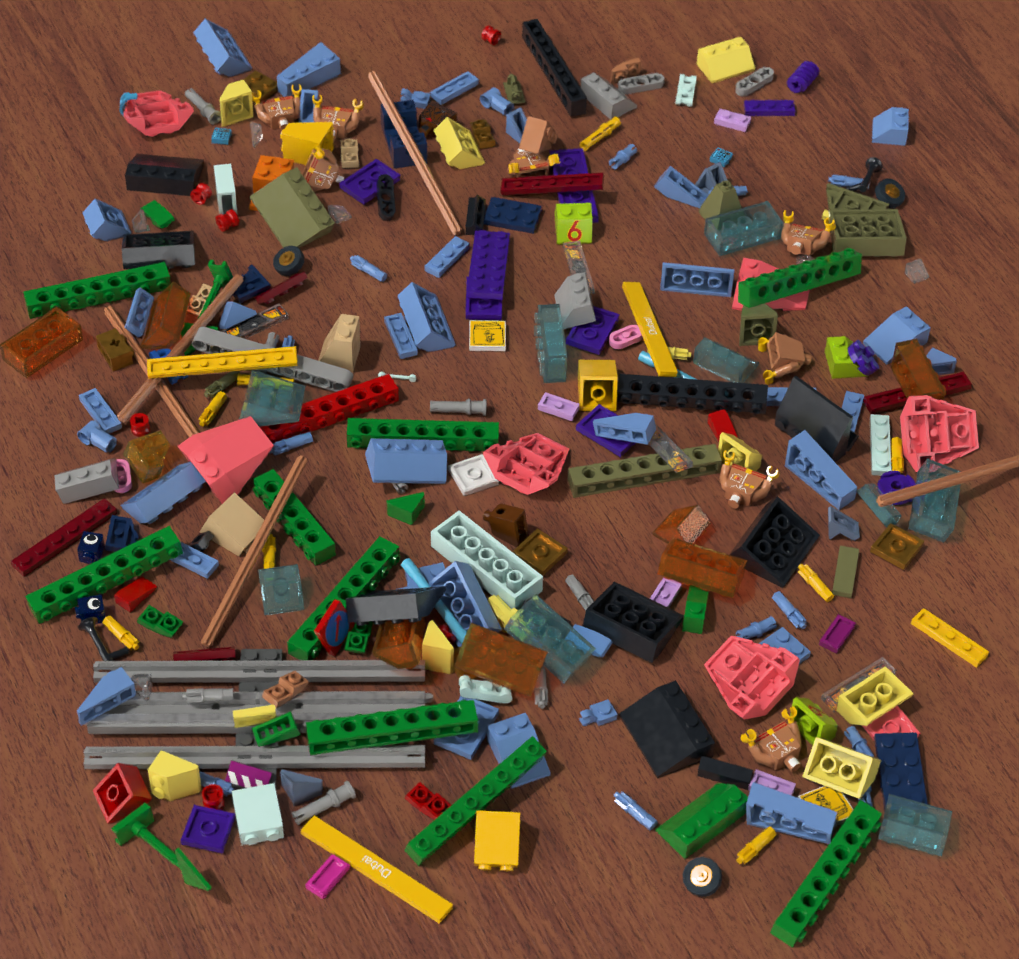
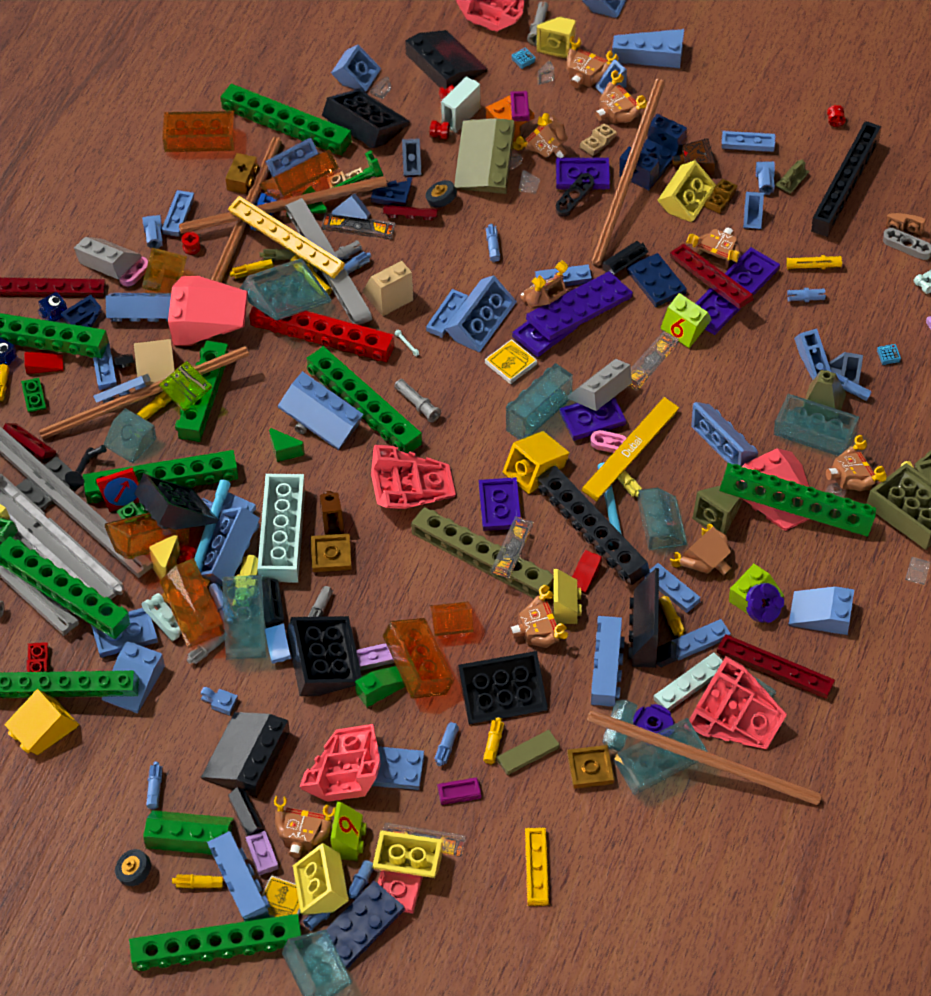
camera: 50 degrees right, 5 degrees up
(158, 214) = (397, 89): green slope -> none
(230, 250) = (411, 156): none -> sand blue slope
(235, 559) = (122, 389): none -> medium blue plate
(258, 81) = (598, 35): pearl gold plate -> none
(280, 159) = (519, 106): none -> magenta tile
(286, 648) = (75, 478): none -> black piece
(288, 517) = (185, 386): none -> clear neon green tile
(288, 687) = (38, 505): nougat slope -> none
(291, 443) = (269, 335): medium blue piece -> none
(302, 138) = (571, 107): yellow slope -> none
(420, 99) = (708, 130): medium blue plate -> none
(456, 269) = (546, 291): none -> nougat torso
(472, 475) = (358, 459): white tile -> none
(537, 136) = (744, 227): nougat wedge -> none
(558, 406) = (487, 456): lavender plate -> none
(606, 96) = (864, 234): light grey slope -> none
(627, 427) = (502, 510): medium blue slope -> none
(757, 628) = (404, 736): medium blue pin -> none
(843, 524) = (566, 712): sand blue slope -> none
(897, 459) = (687, 702): yellow piece -> none
(915, 371) = (775, 648): clear orange brick -> none
(941, 362) = (821, 655): medium blue slope -> none

